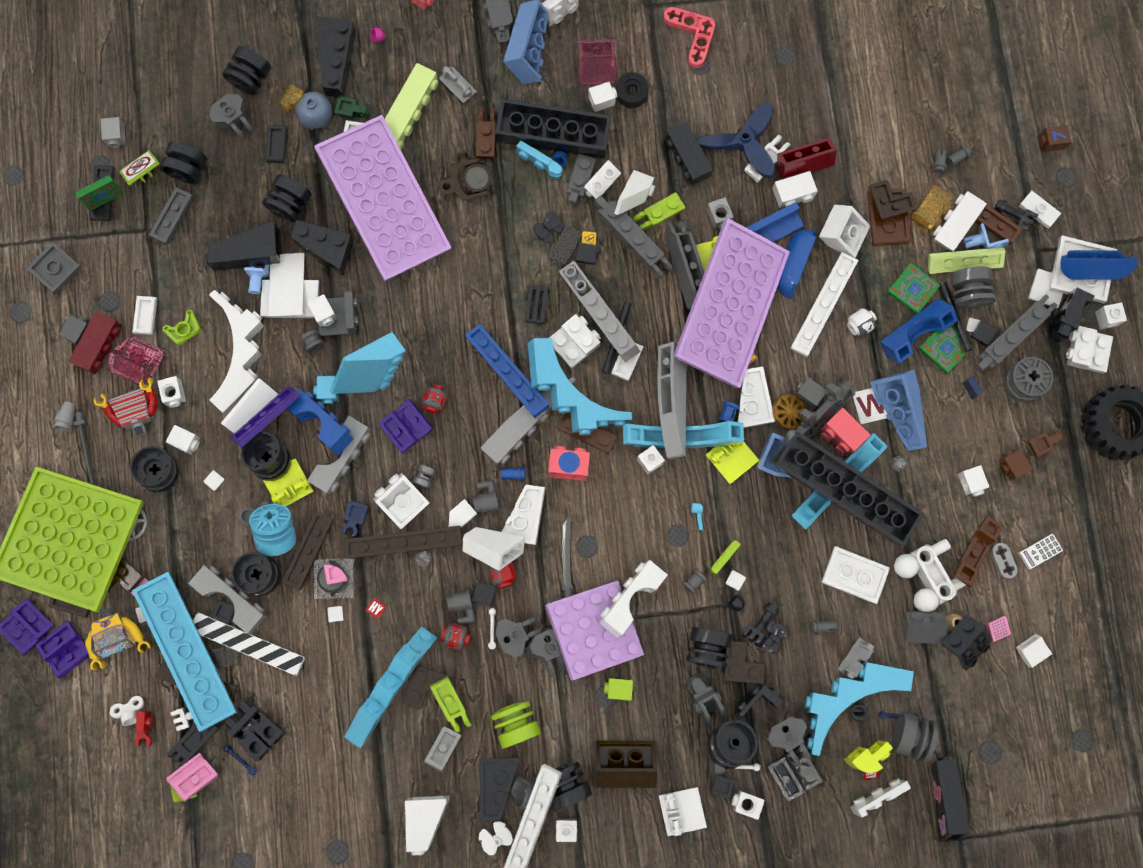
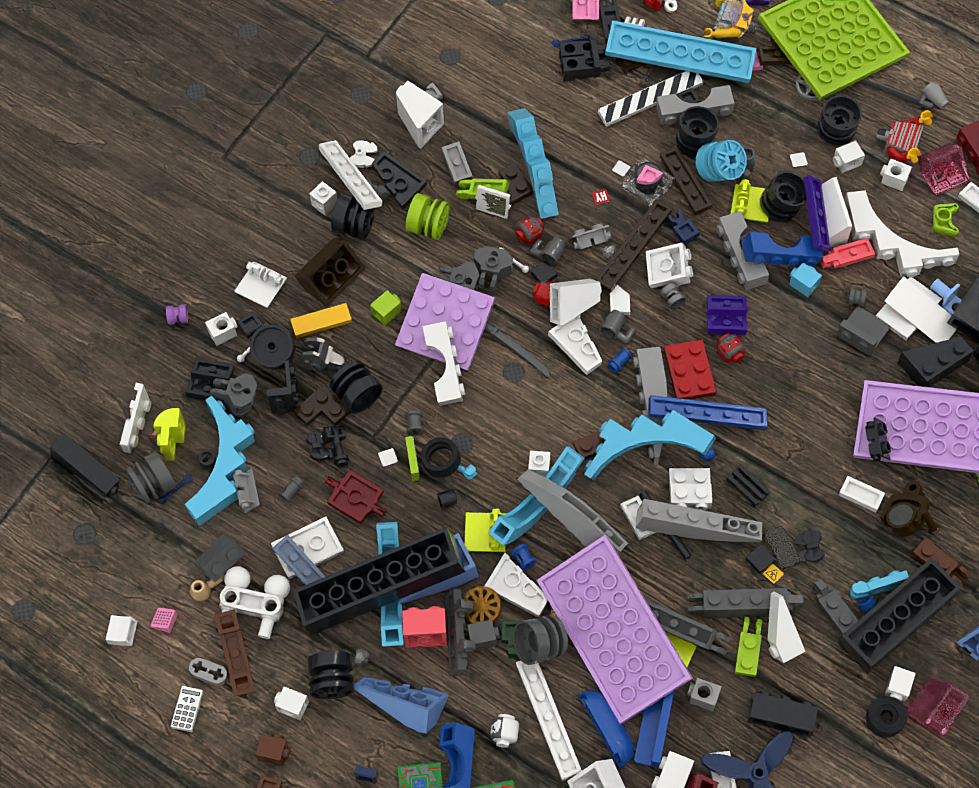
camera: 135 degrees right, 15 degrees down
(275, 374) = (848, 254): none -> coral hinge
(322, 311) = (875, 317): white brick -> none
(369, 367) = (792, 310): medium azure slope -> none
(390, 831) = (434, 92): none -> light grey tile
(413, 580) = (598, 233): none -> light grey hinge
(434, 228) = (877, 431): none -> black hinge
(456, 685) = (493, 201): none -> piece
(476, 222) = (861, 494): none -> white tile
(476, 416) = (689, 370): none -> red plate
(569, 464) = (589, 399): coral brick -> none
(602, 180) = (817, 620): white hinge -> none
(671, 733) = (321, 320): none -> yellow tile
(720, 540) = (444, 470): none -> black tyre
(732, 505) = (447, 498): none -> black hose
(736, 603) = (369, 440): black hinge -> none
(767, 853) = (177, 314): none -> medium lavender wheel
(784, 345) = (540, 639): none -> dark grey wheel
(789, 573) = (355, 497): none -> dark red plate
(791, 374) = (507, 636): none -> dark green plate
(867, 406) = (429, 676): white sticker -> none
(875, 565) = (297, 561): none -> sand blue tile
(934, 467) = (330, 674): none -> black wheel
(967, 641) = (177, 578): black bracket -> none

